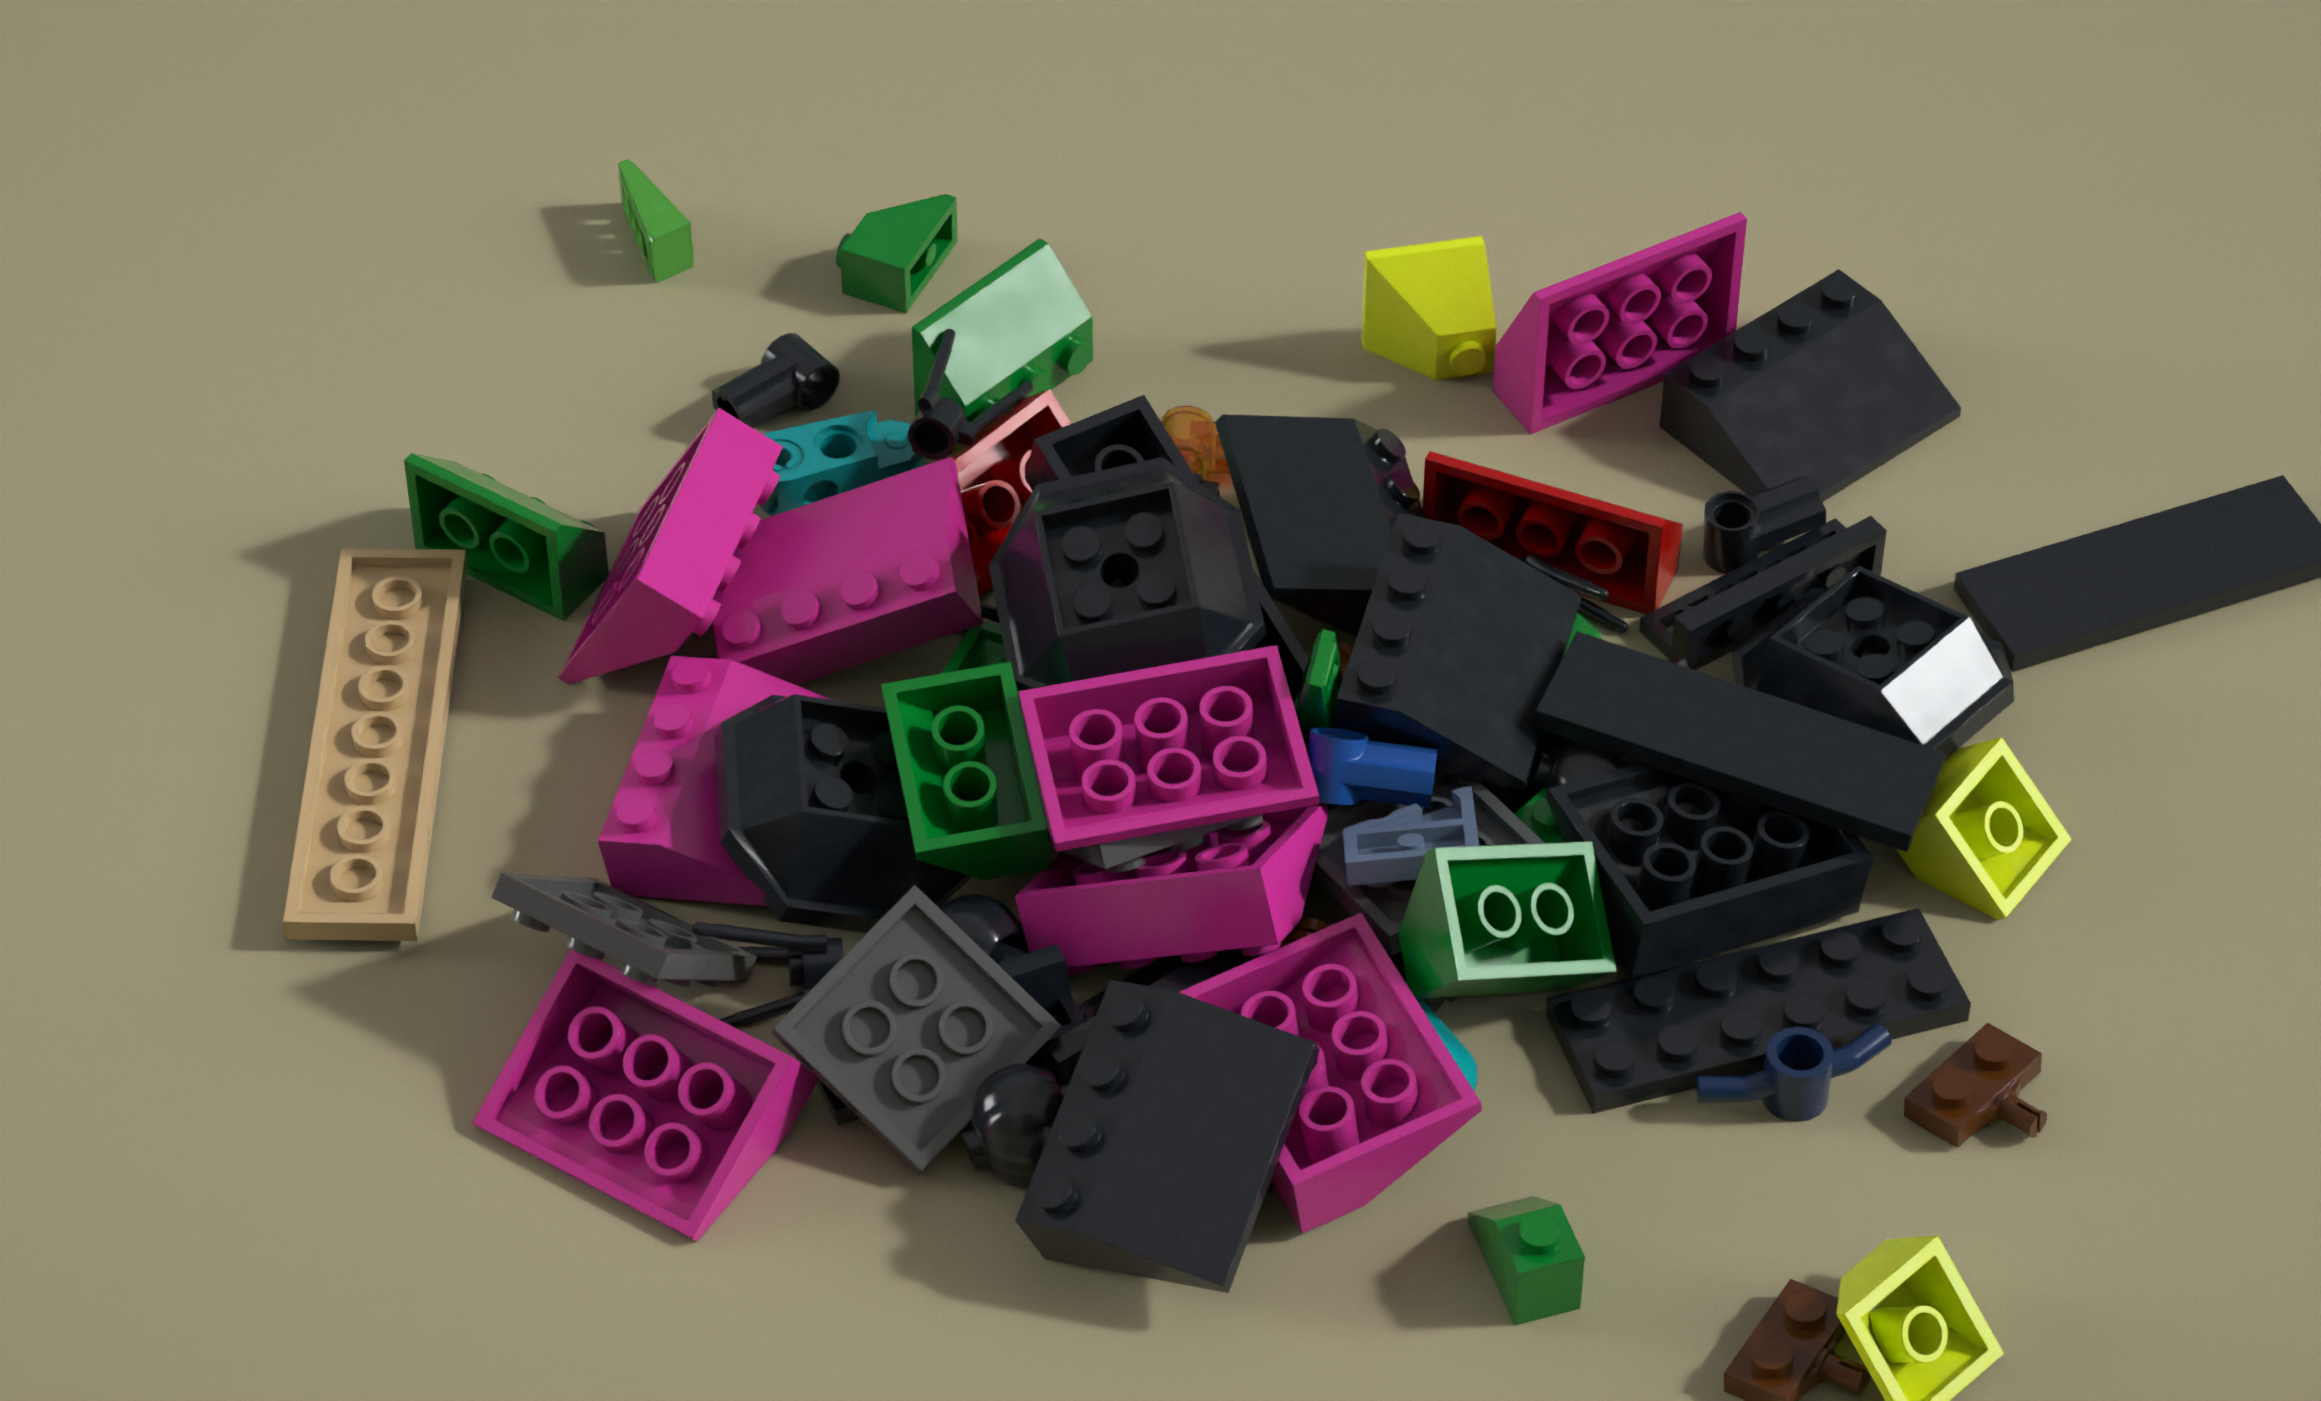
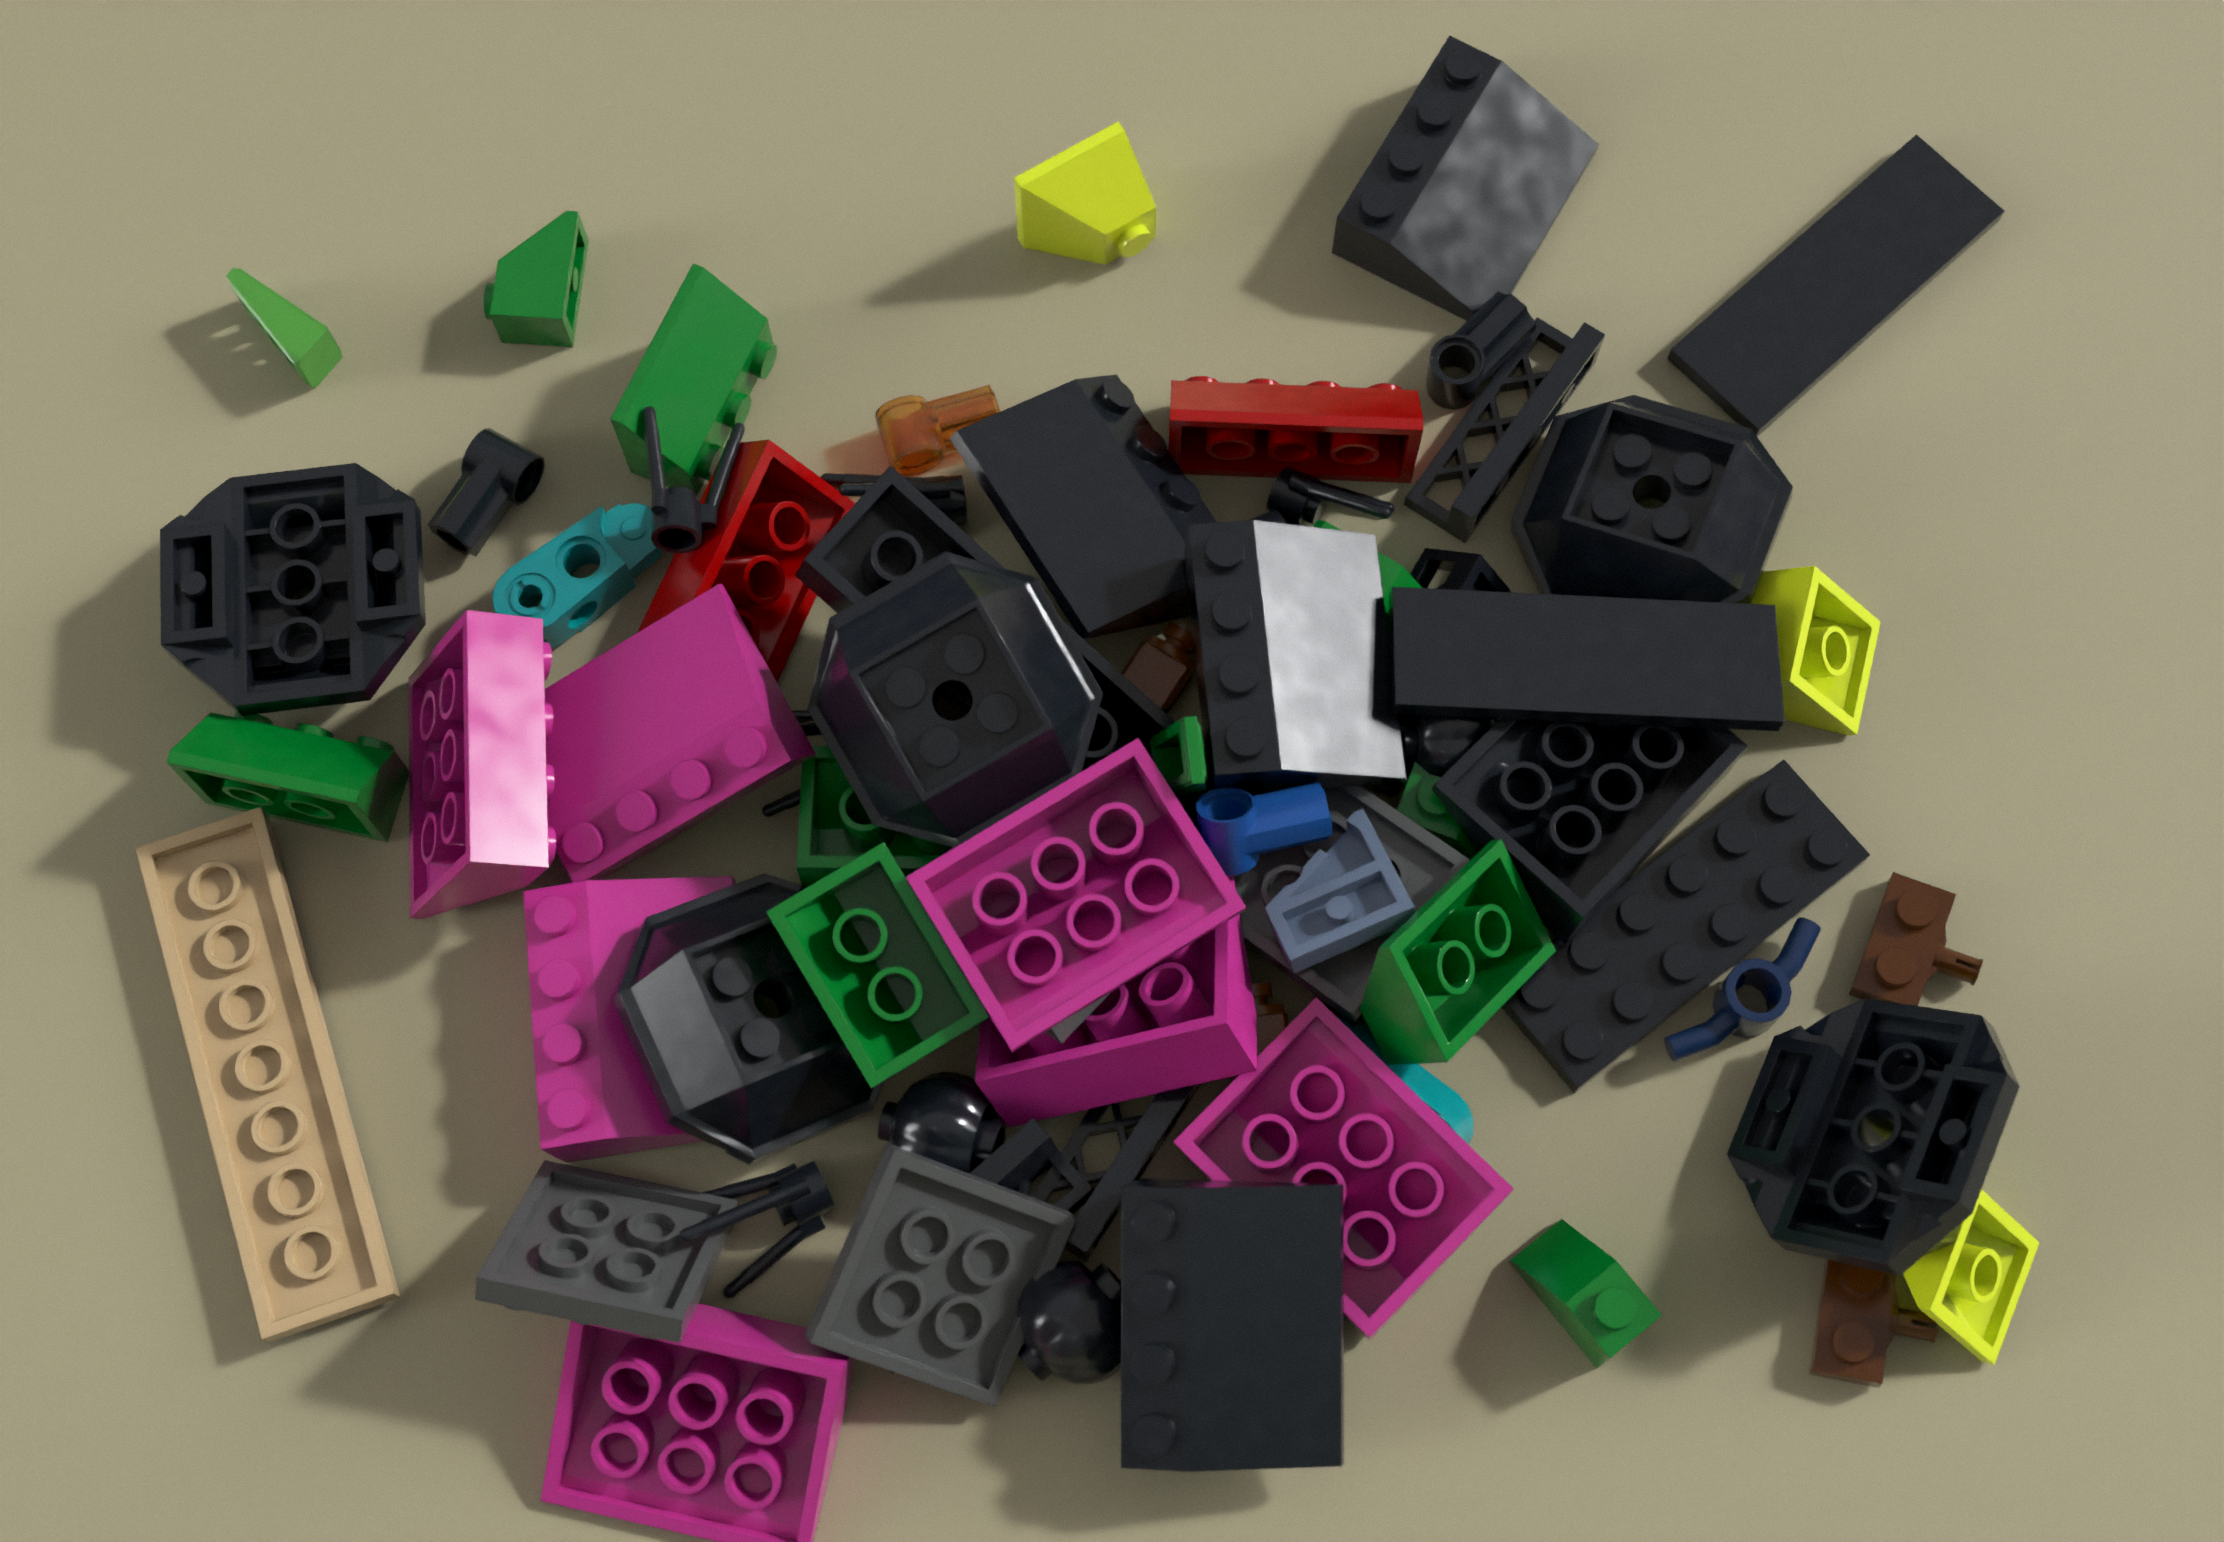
camera: 20 degrees left, 25 degrees up
(571, 392) = (261, 541): none -> black piece
(1620, 325) = (1273, 173): dark pink slope -> none
(1861, 1181) = (1874, 1131): none -> black piece

